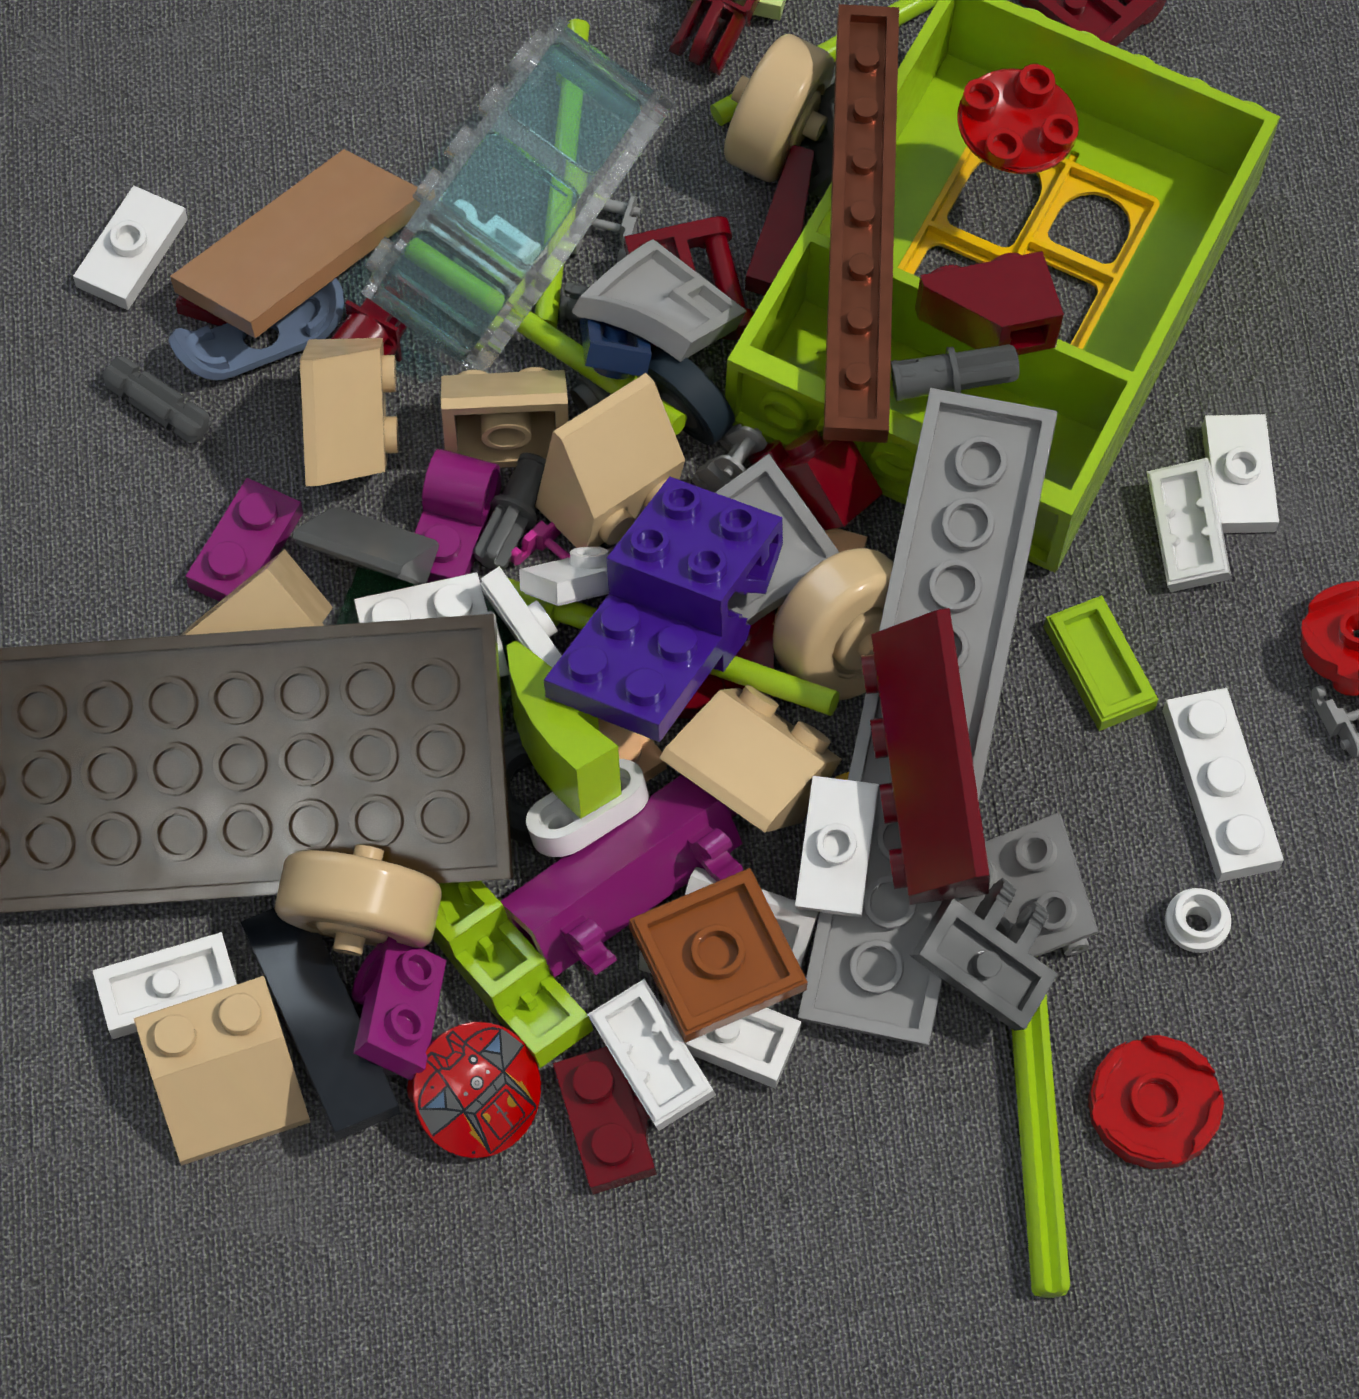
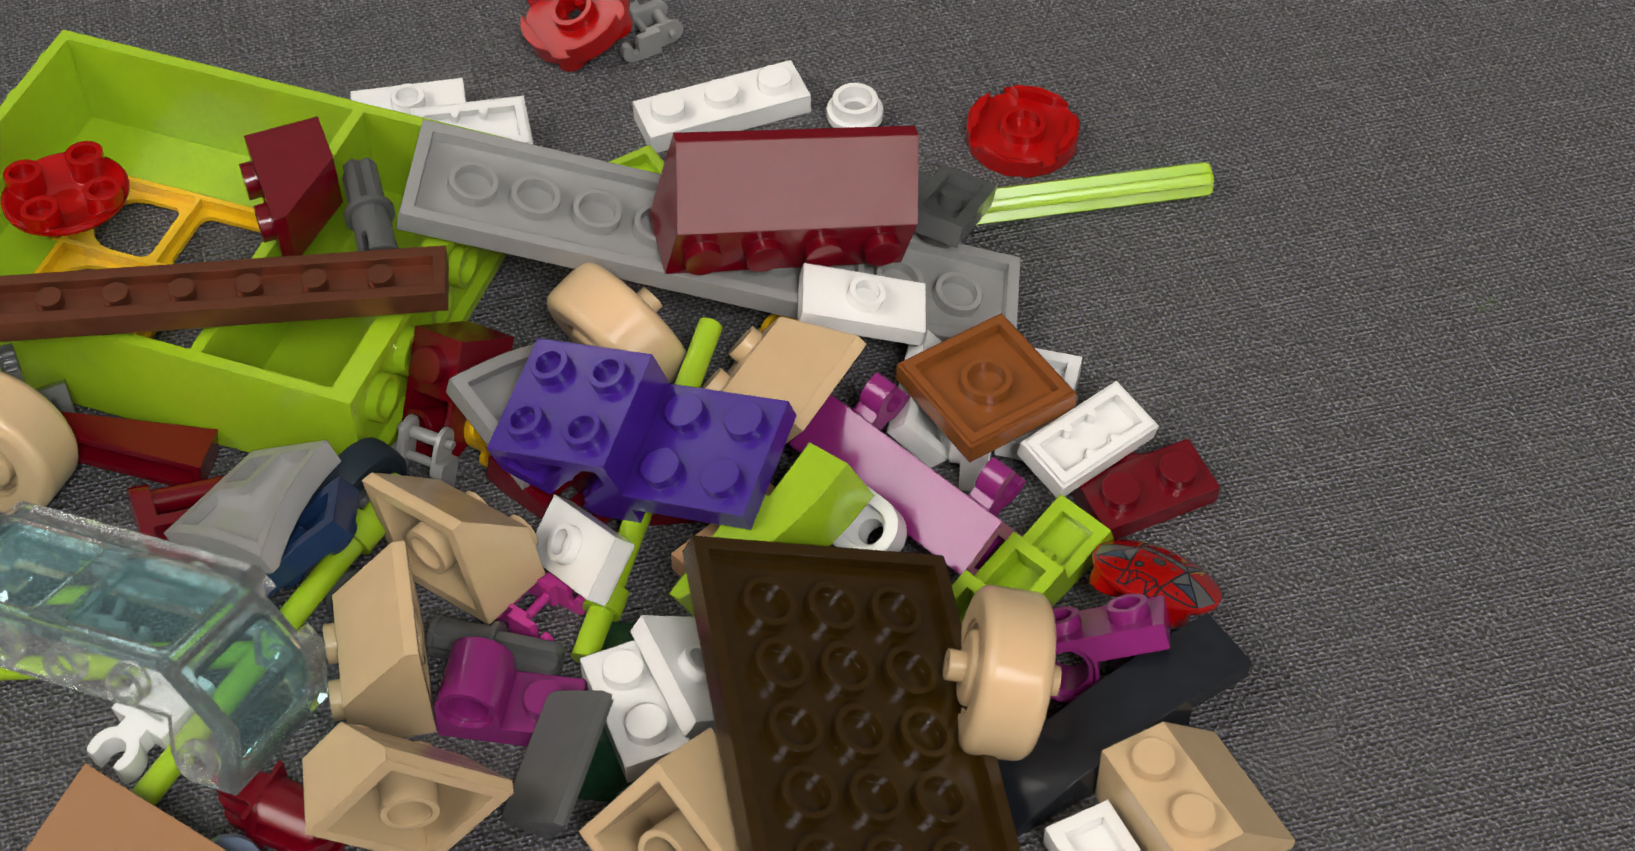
camera: 95 degrees left, 15 degrees down
(526, 623) = (638, 594): white plate -> none

